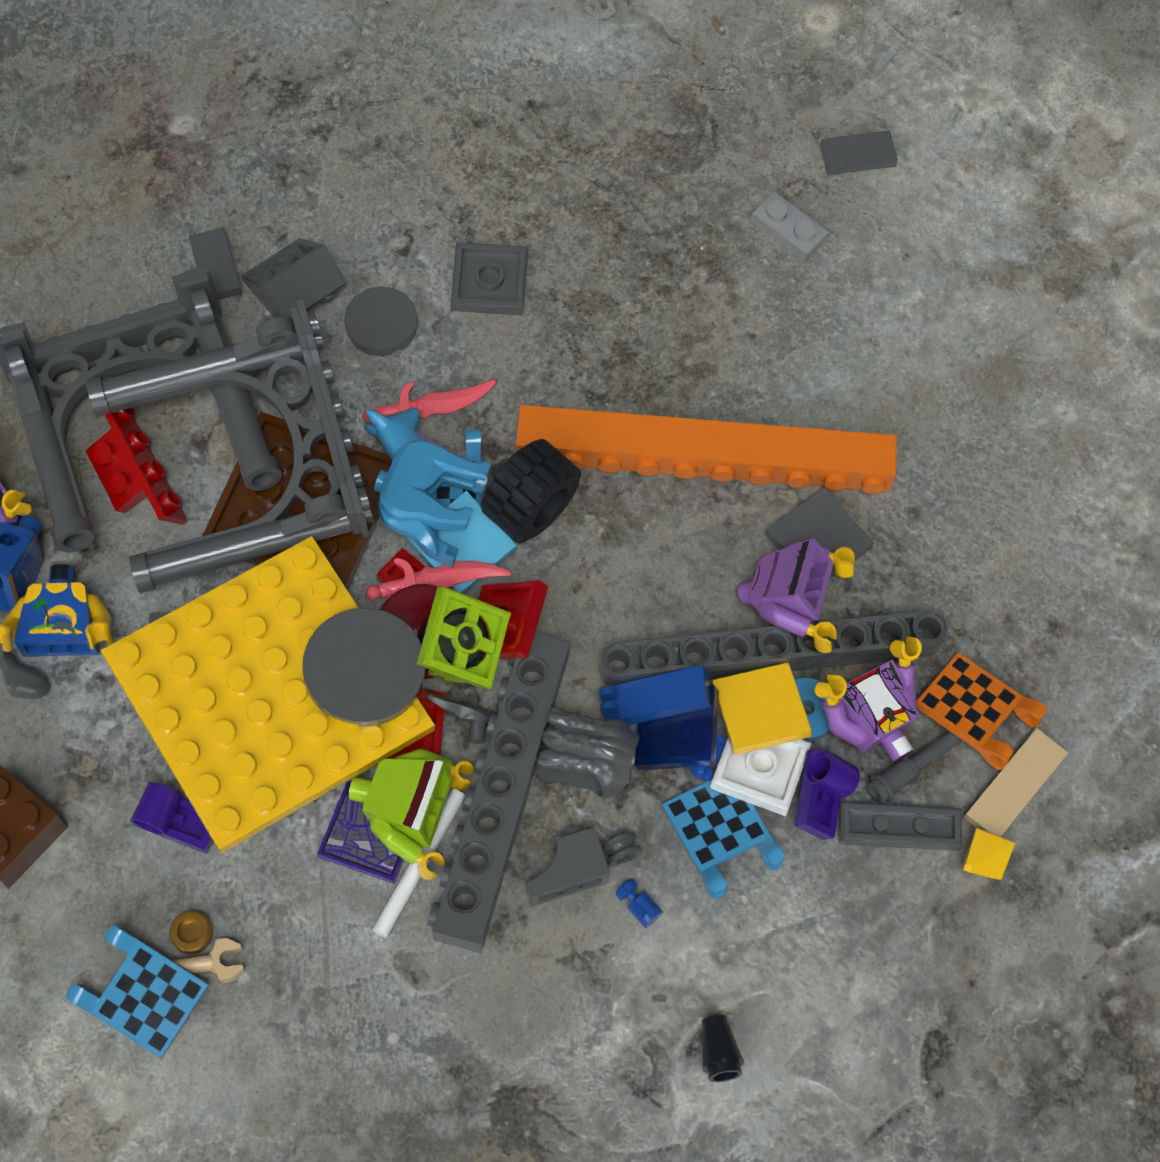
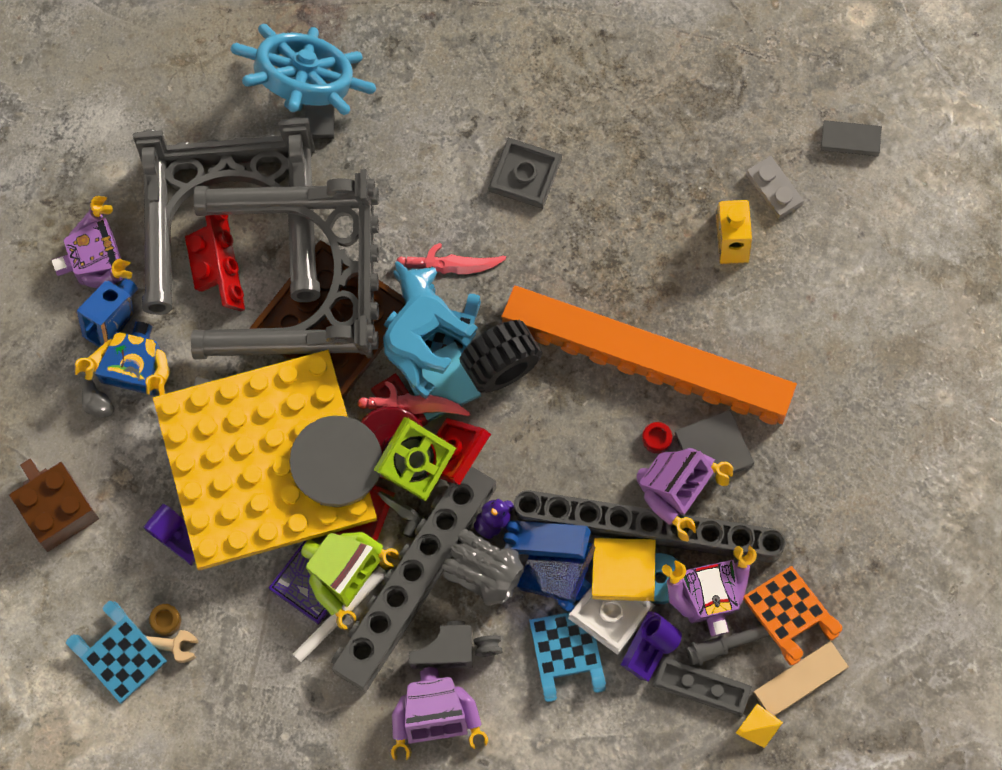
camera: 25 degrees right, 5 degrees up
(182, 215) = (303, 69): none -> dark azure piece
(294, 274) = (375, 138): dark grey slope -> none
(381, 320) = (432, 187): dark grey tile -> none
(579, 688) = (493, 517): none -> dark purple animal
(581, 949) = (433, 712): none -> medium lavender torso
(641, 905) = (490, 691): blue piece -> none
(746, 543) = (657, 437): none -> red tile
(758, 272) = (733, 226): none -> yellow torso

